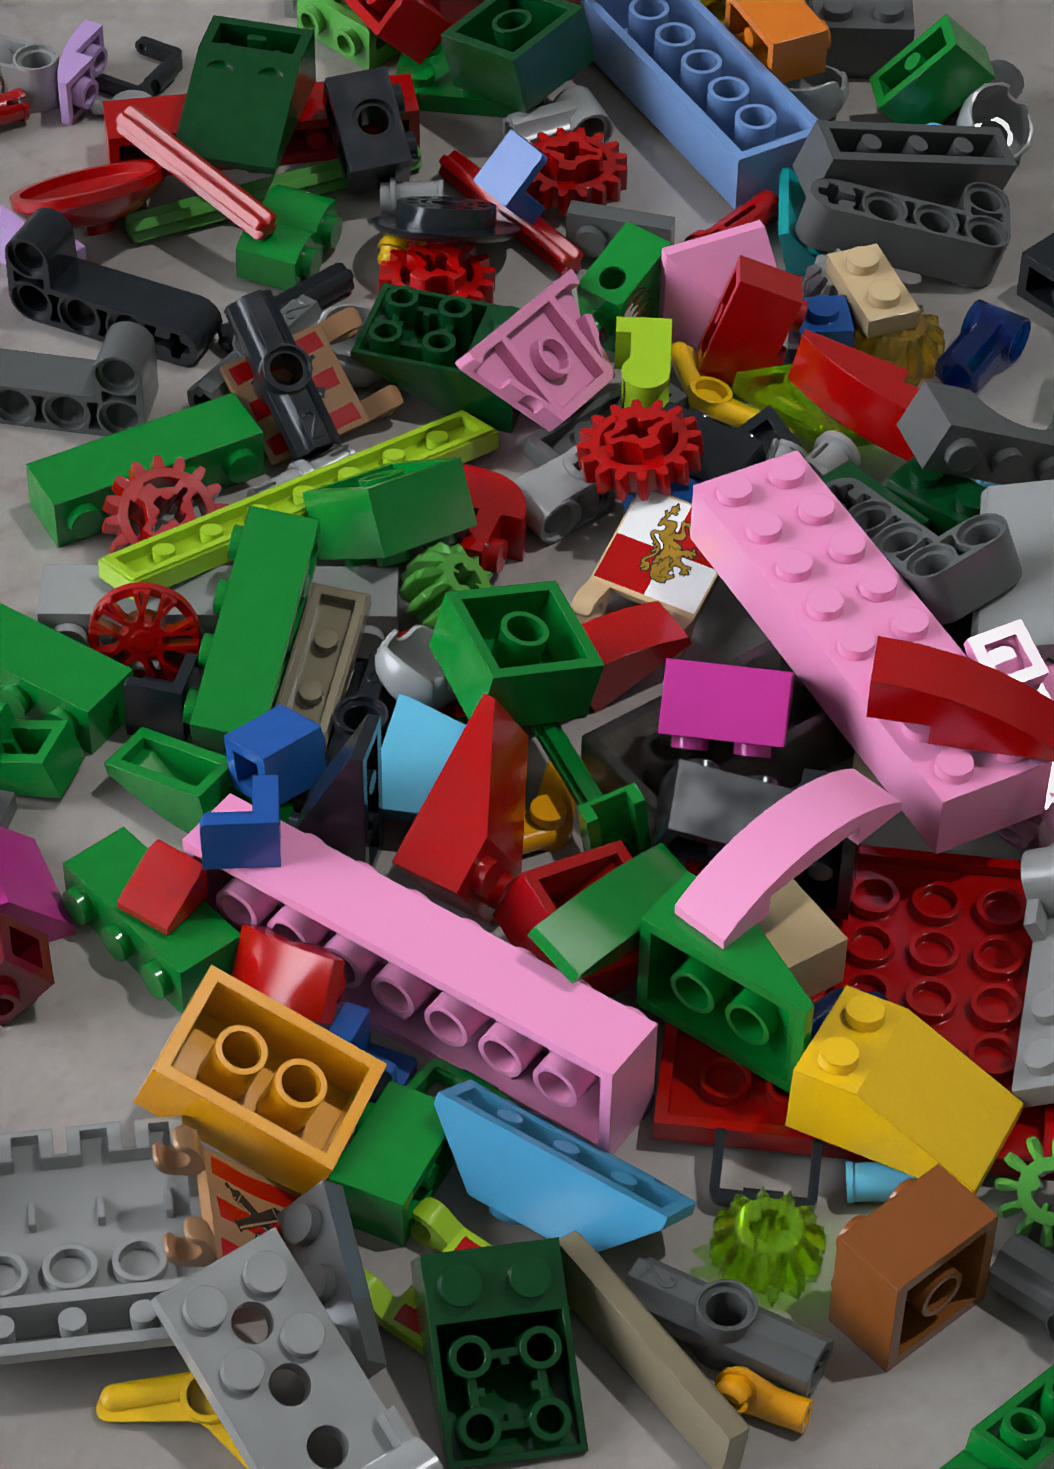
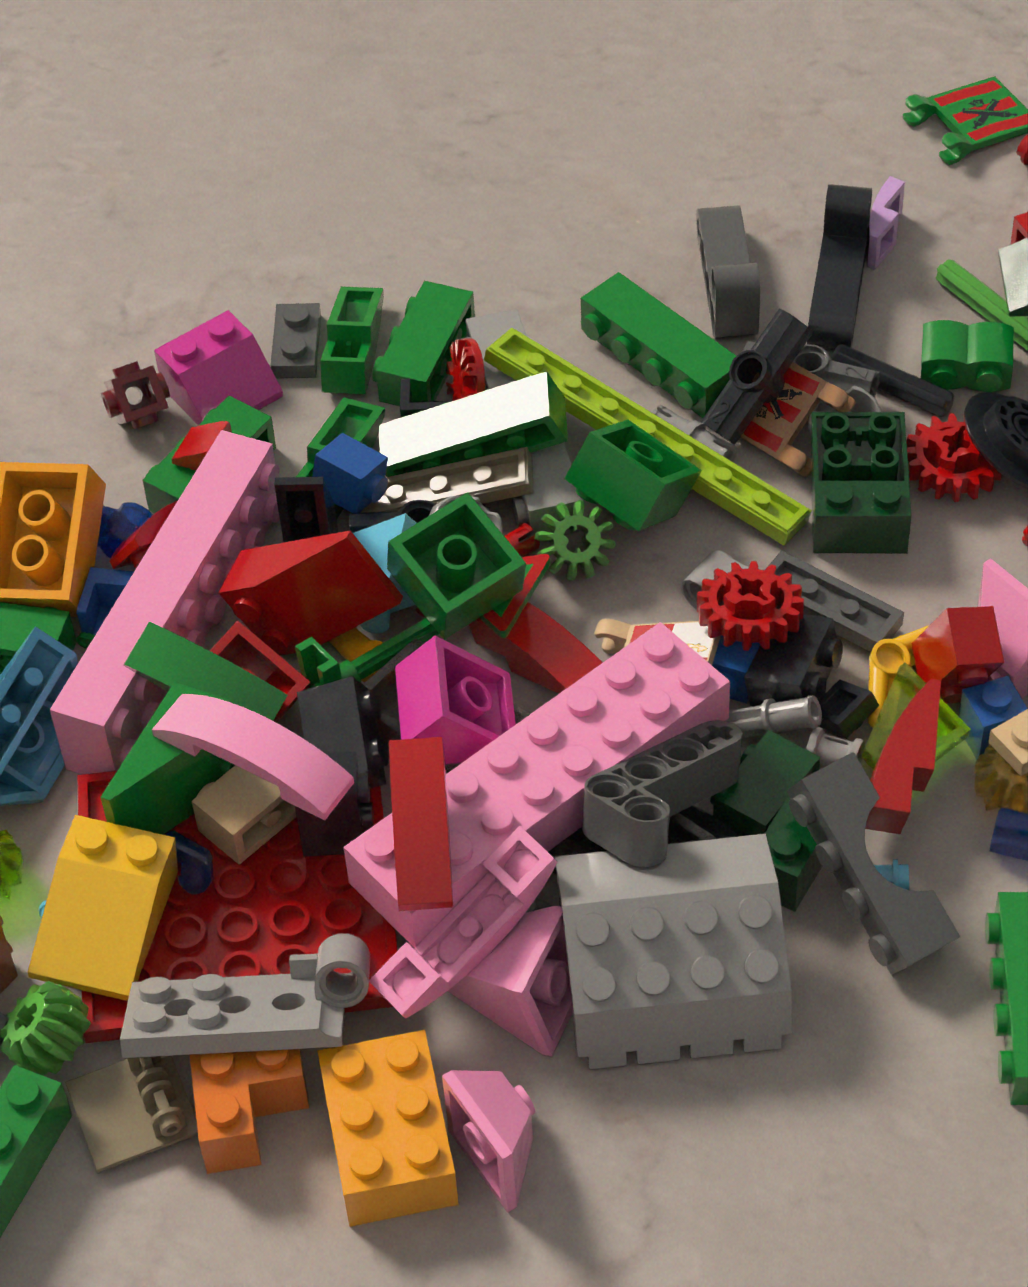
camera: 80 degrees right, 5 degrees up
(93, 195) = (950, 225): red dish -> none
(150, 503) = (598, 355): red gear -> none
(196, 173) = (974, 267): axle -> none
(245, 837) = (222, 456): blue panel -> none
(499, 518) = (670, 554): red brick -> none
(543, 357) = (848, 524): bright pink wing -> none
(623, 281) = (960, 562): green torso -> none
(644, 359) = (879, 600): lime leg -> none
(724, 1196) = (34, 852): black piece -> none

